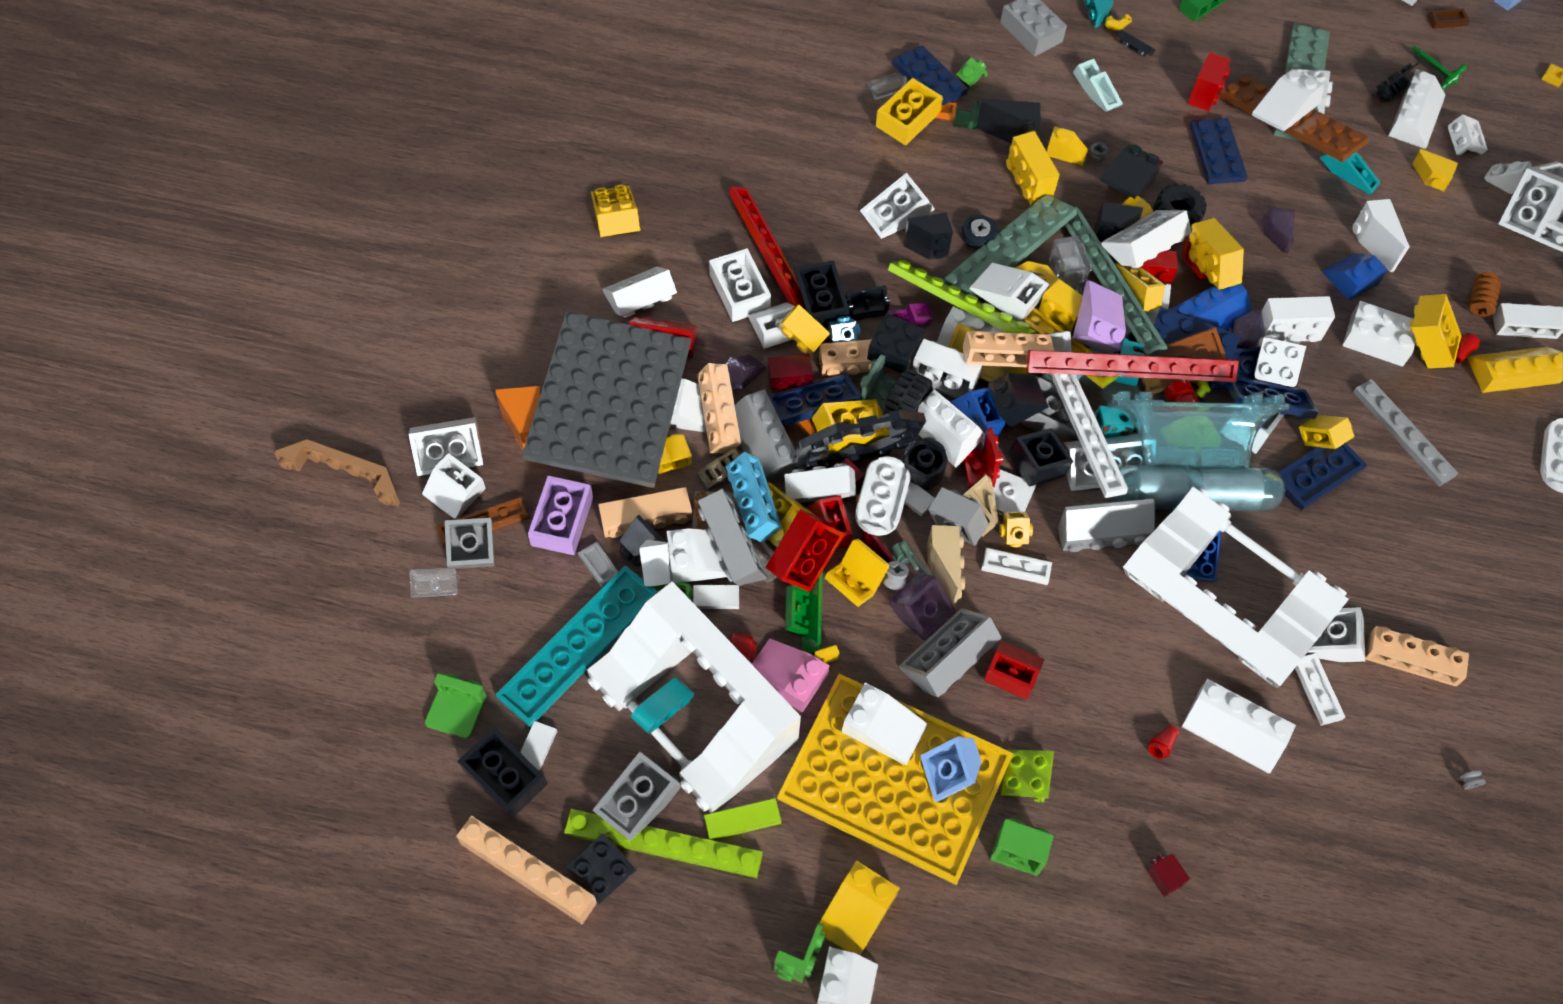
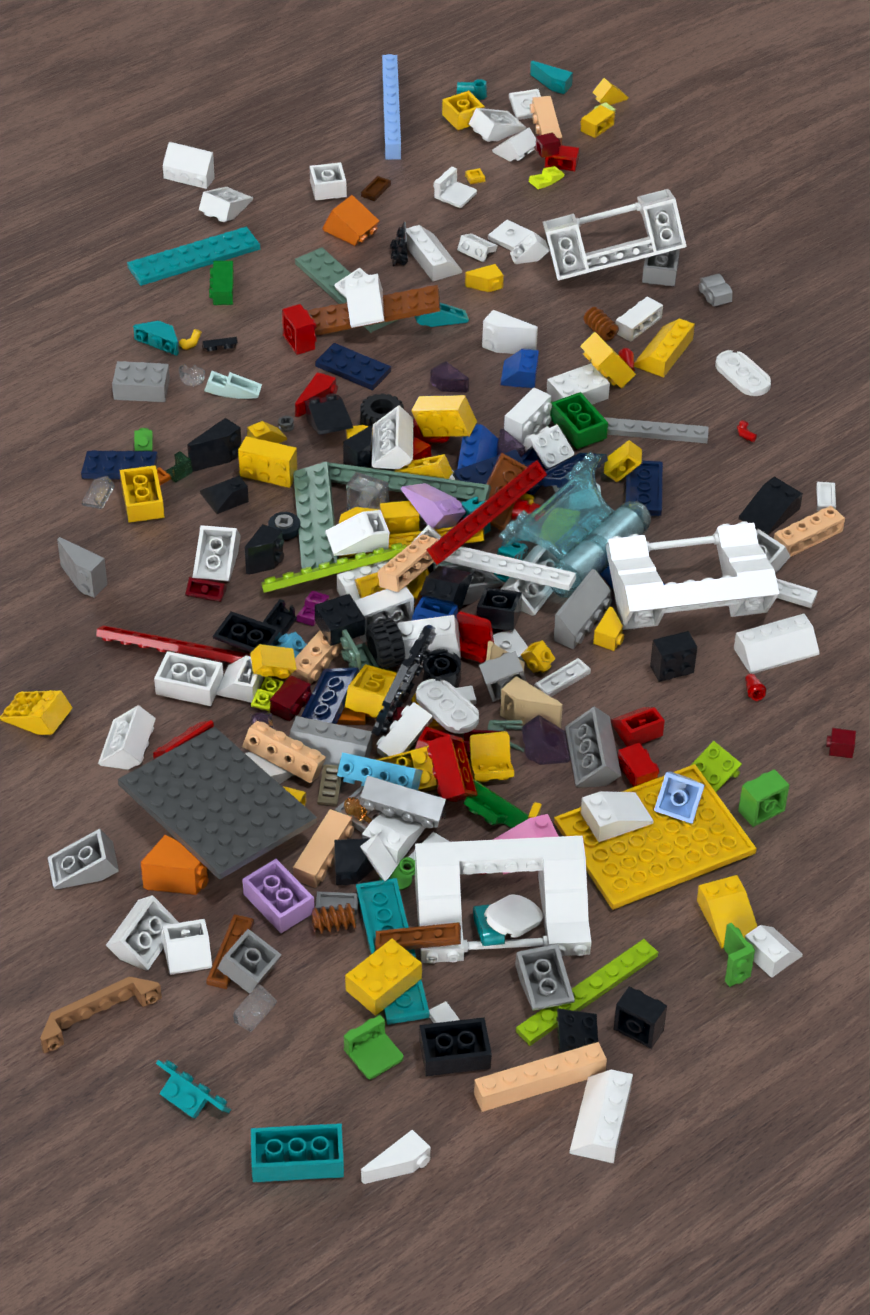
camera: 50 degrees left, 15 degrees down
(295, 724) = (297, 1152): none -> teal brick
(309, 594) = (187, 1094): none -> teal bracket
(359, 814) = (399, 1159): none -> white slope
(488, 352) = (84, 861): none -> light grey slope
(523, 957) = (602, 1115): none -> white slope
(529, 659) = (383, 976): none -> yellow brick
(573, 576) = (333, 918): none -> dark orange piece
(596, 657) = (422, 936): none -> dark orange tile
(655, 915) = (640, 1017): none -> black brick
(682, 718) = (513, 915): none -> white tile
(742, 819) = (610, 937): lime tile -> none
(783, 349) = (263, 695): none -> neon yellow slope
(785, 132) = (83, 567): none -> light grey slope
(855, 228) = (205, 589): none -> dark red slope
(896, 575) = (516, 740): light grey wheel -> none
(963, 703) = (637, 764): none -> red brick
(972, 168) = (226, 494): none -> black slope
(1077, 51) = (191, 376): none -> clear hair
(1107, 565) = (609, 631): none -> yellow slope
(1125, 643) = (673, 656): none -> black brick
(1163, 144) = (318, 387): none -> red slope
(1340, 361) = (579, 420): none -> green brick
(1382, 28) = (351, 222): none -> orange slope
(1413, 599) = (772, 505): none -> black slope
(1450, 77) = (424, 221): green piece -> none
(1484, 640) = (825, 495): none -> white tile
(1487, 508) = (744, 433): none -> red arm
(1513, 69) = (452, 192): none -> white bracket
(1513, 148) = (509, 235): none -> white plate

